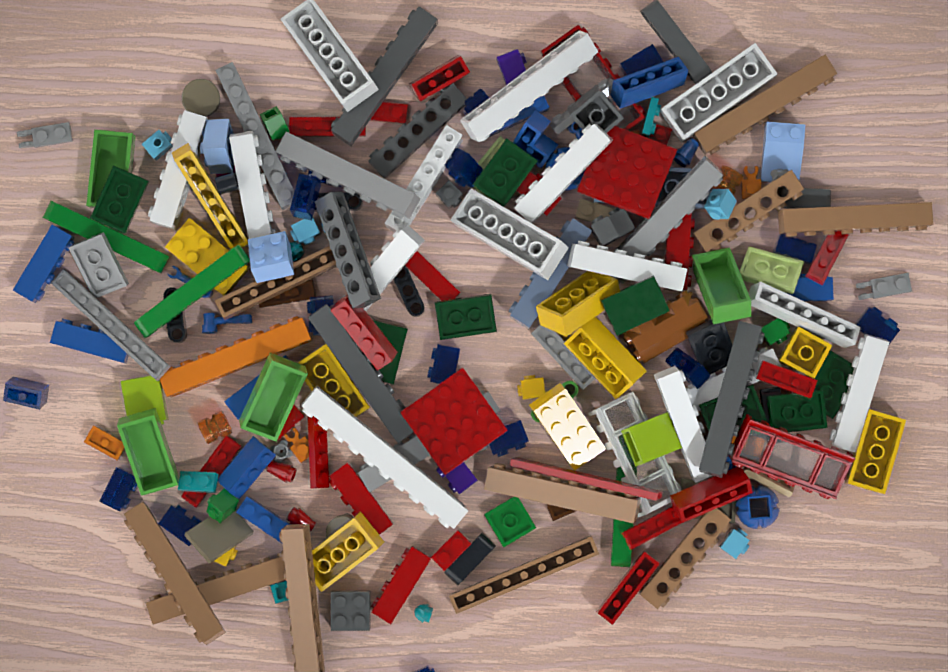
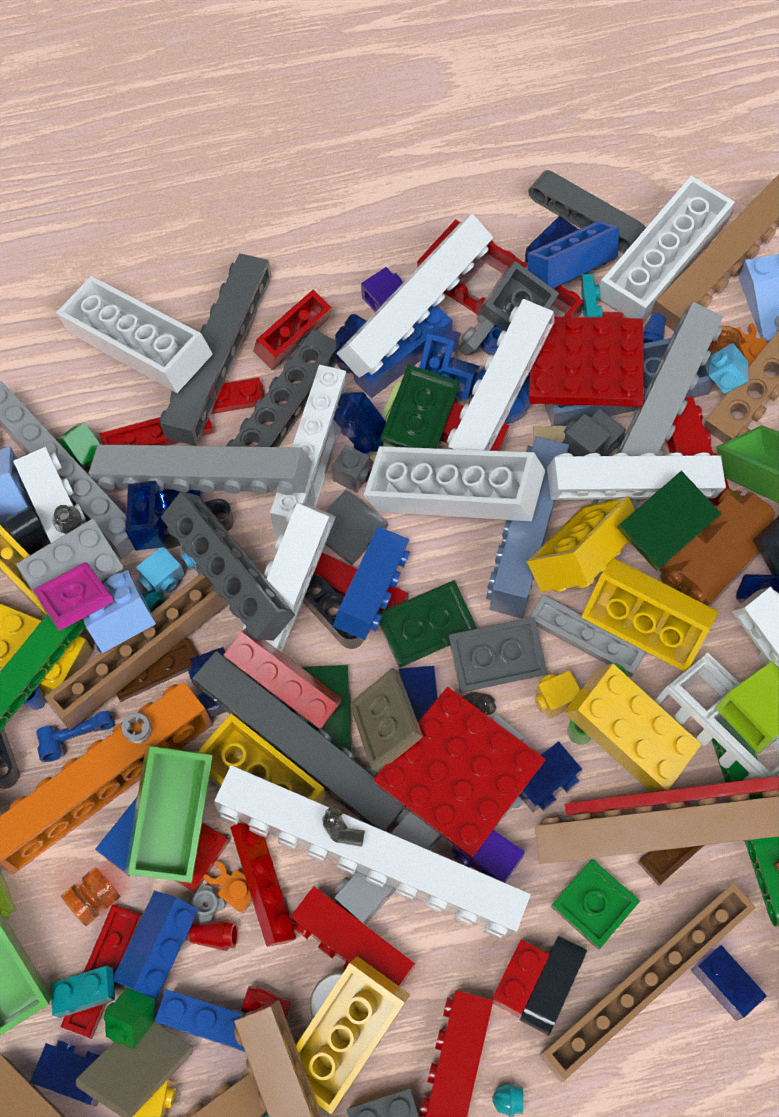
camera: 20 degrees left, 20 degrees down
(247, 245) = (73, 596): none -> dark pink tile
(249, 218) = (69, 551): none -> light grey plate
(254, 181) = (68, 524): none -> clear smoke cone
(261, 338) = (146, 728): none -> light grey bush
(368, 445) = (338, 829): none -> clear smoke arm
(419, 375) = (385, 720): none -> dark tan tile
(437, 232) = (352, 527): none -> dark grey tile
(438, 282) = (371, 582): none -> blue brick
(481, 376) = (482, 701): none -> clear smoke arm
(503, 351) = (497, 654): none -> dark grey plate
(570, 588) = (729, 983): none -> clear blue brick

